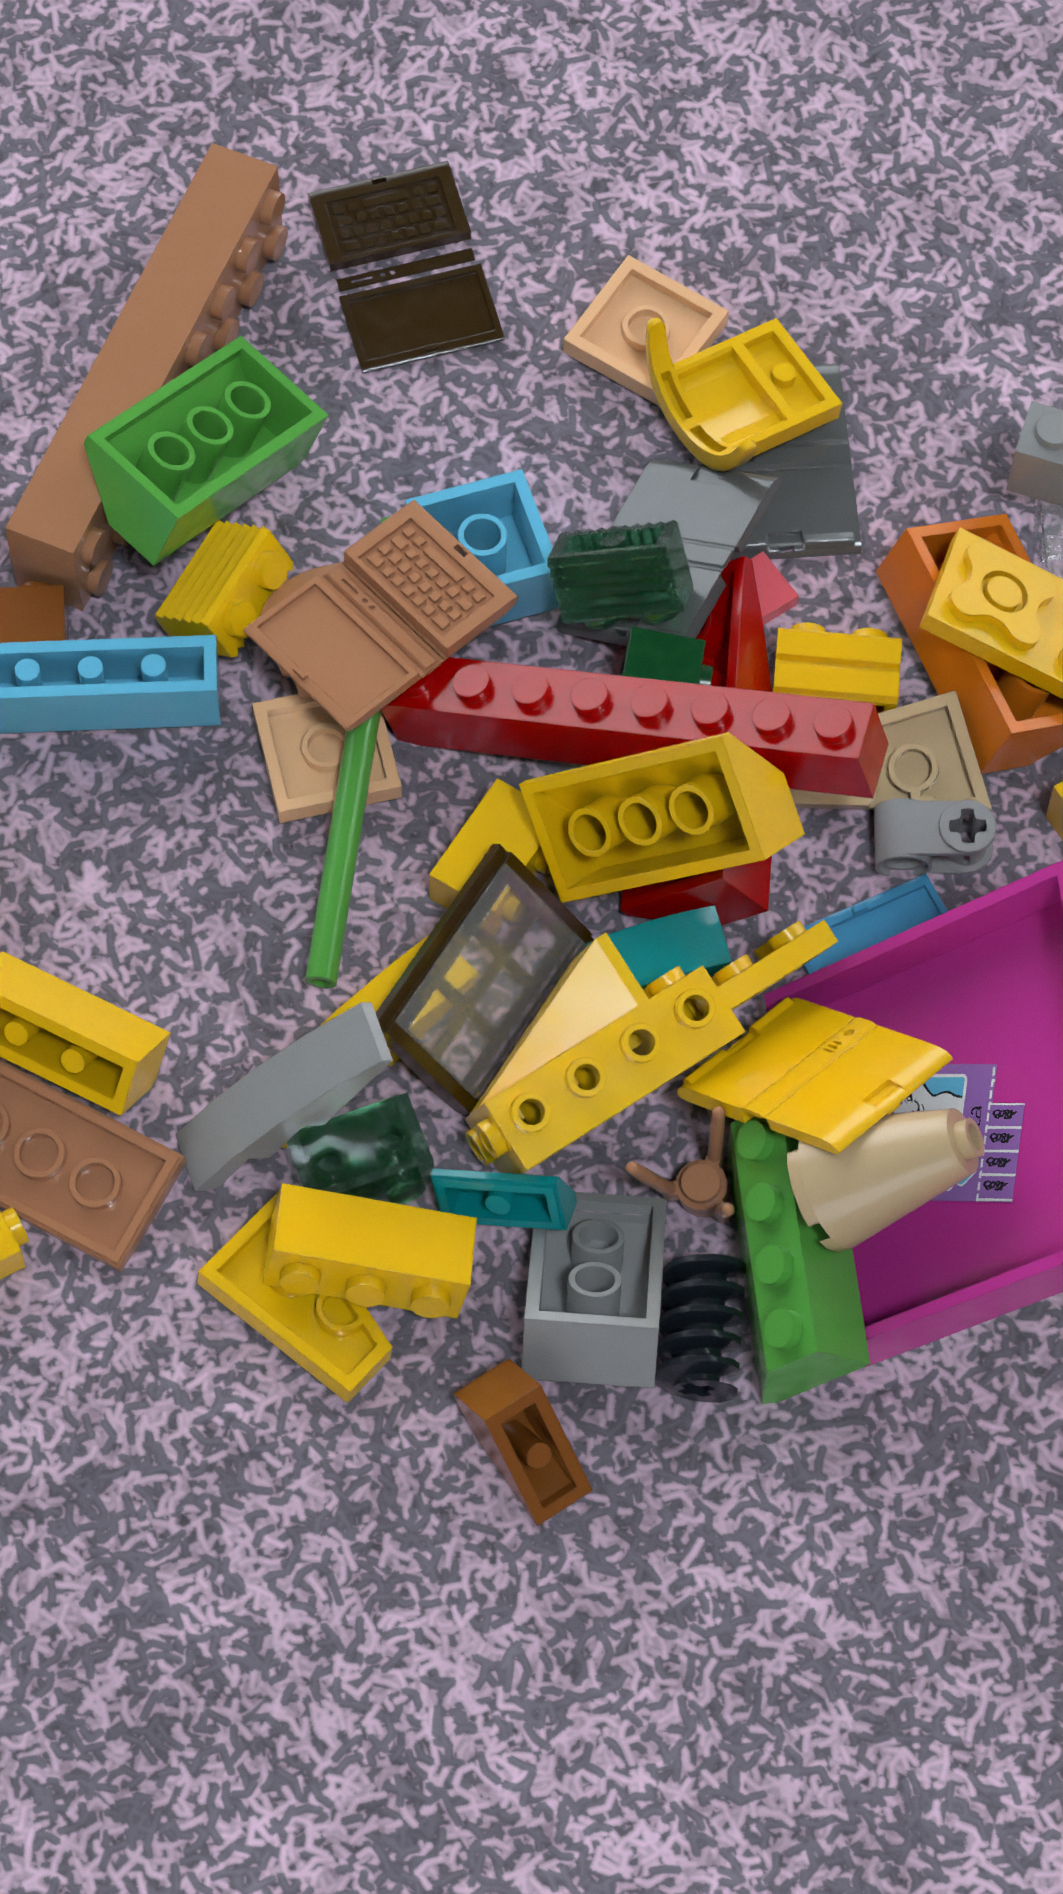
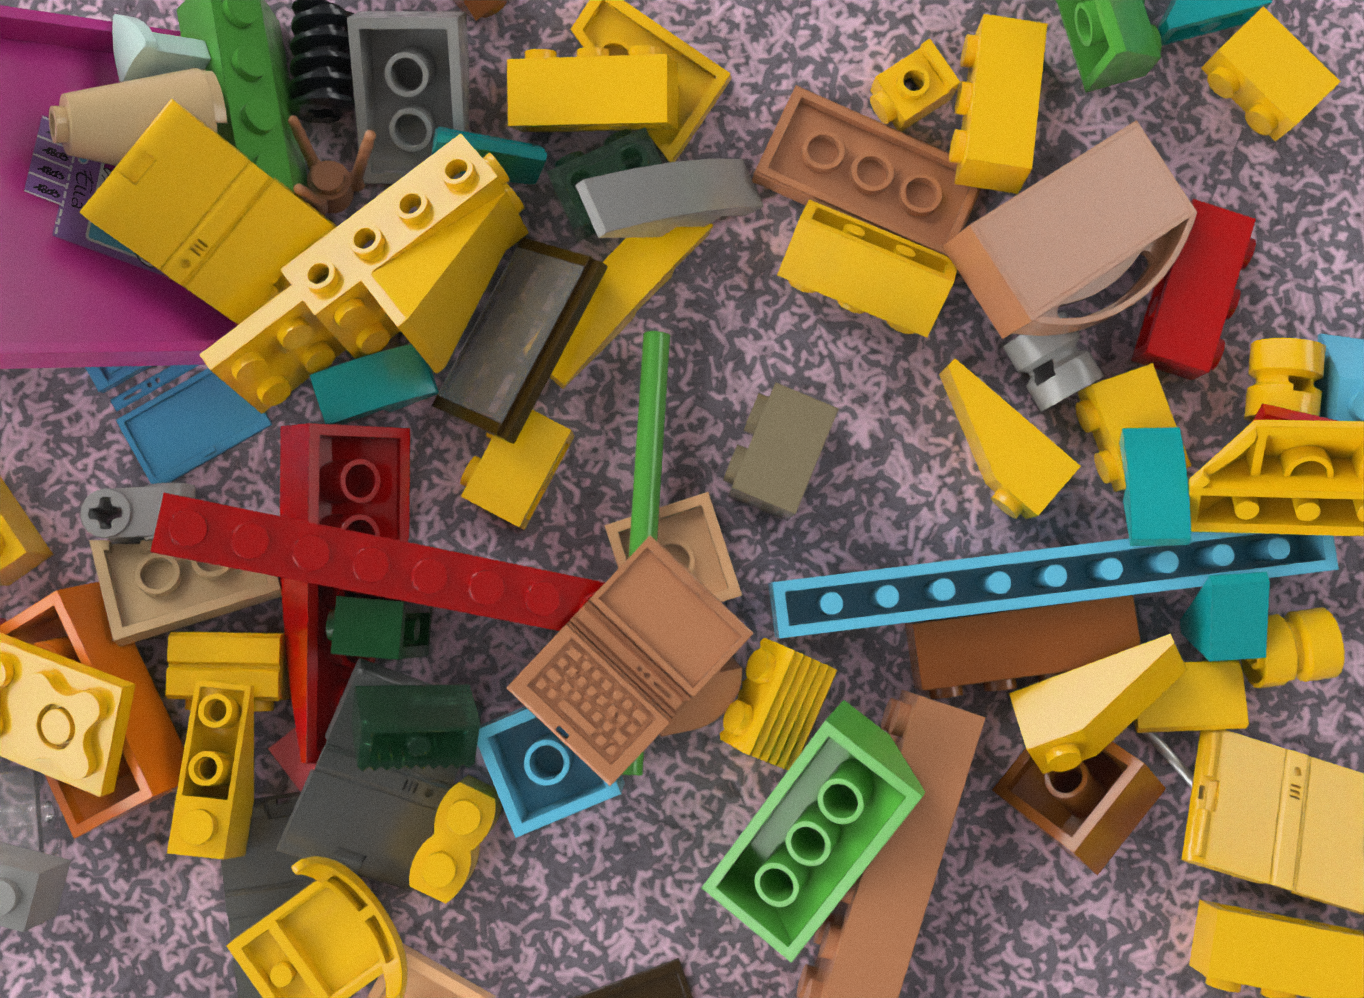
camera: 175 degrees right, 20 degrees up
(191, 831) = (782, 453): none -> dark tan brick
(595, 483) = (453, 850): none -> yellow brick
(660, 816) = (352, 448): yellow slope -> none
(847, 556) = (216, 774): none -> yellow slope
(898, 1264) = (147, 53): none -> light aqua tile

